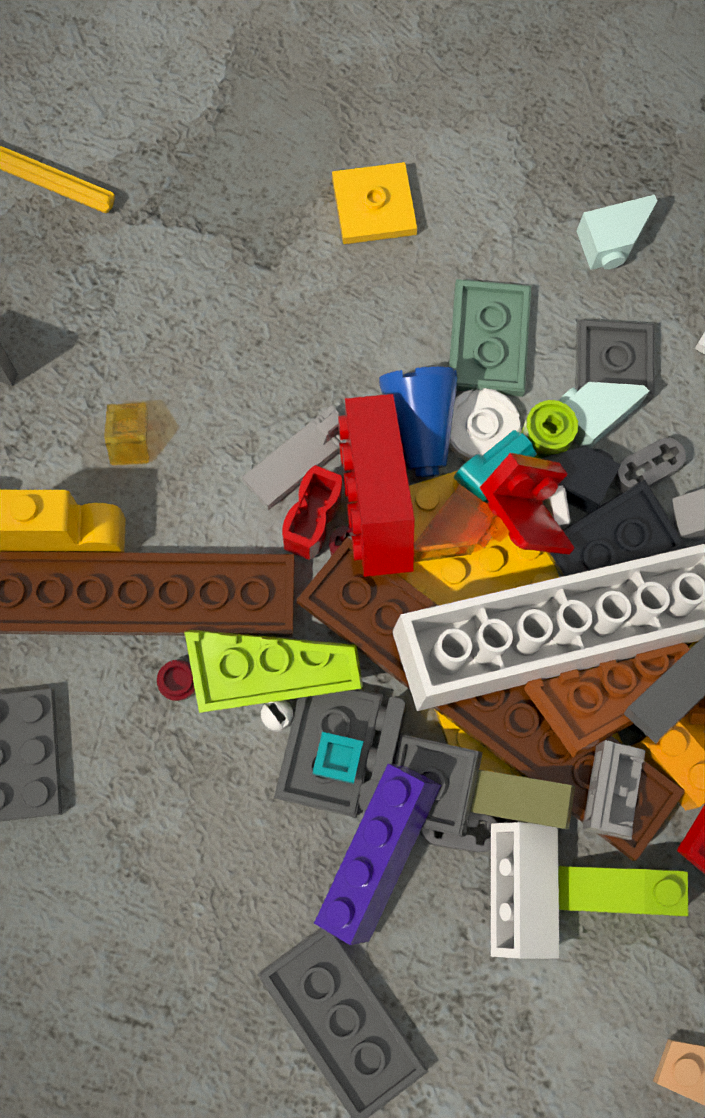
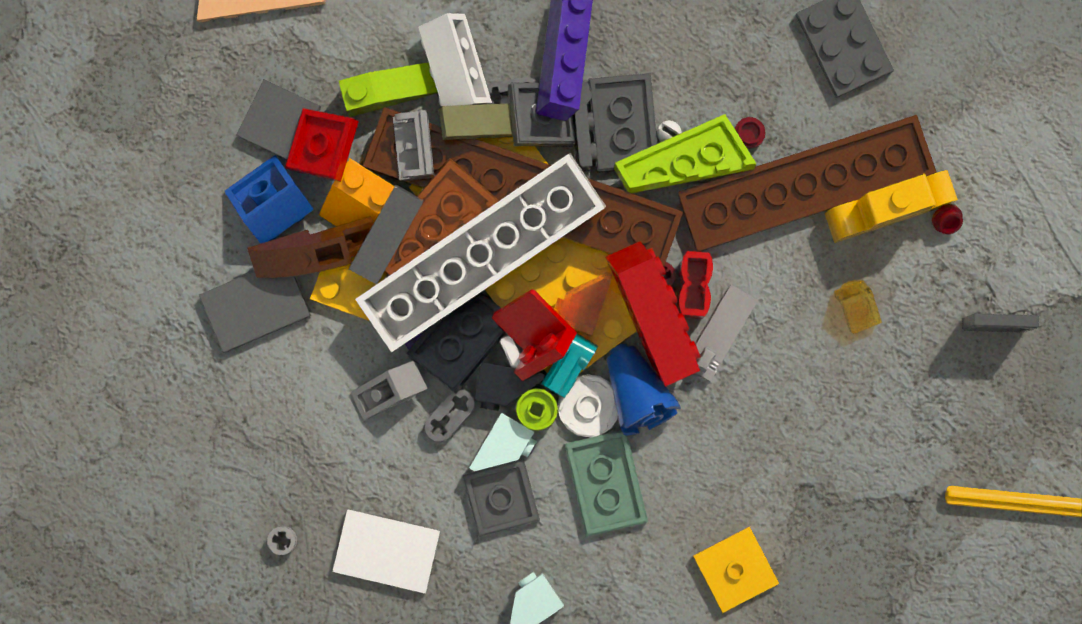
camera: 170 degrees right, 10 degrees up
(337, 757) = (614, 111): teal plate -> none

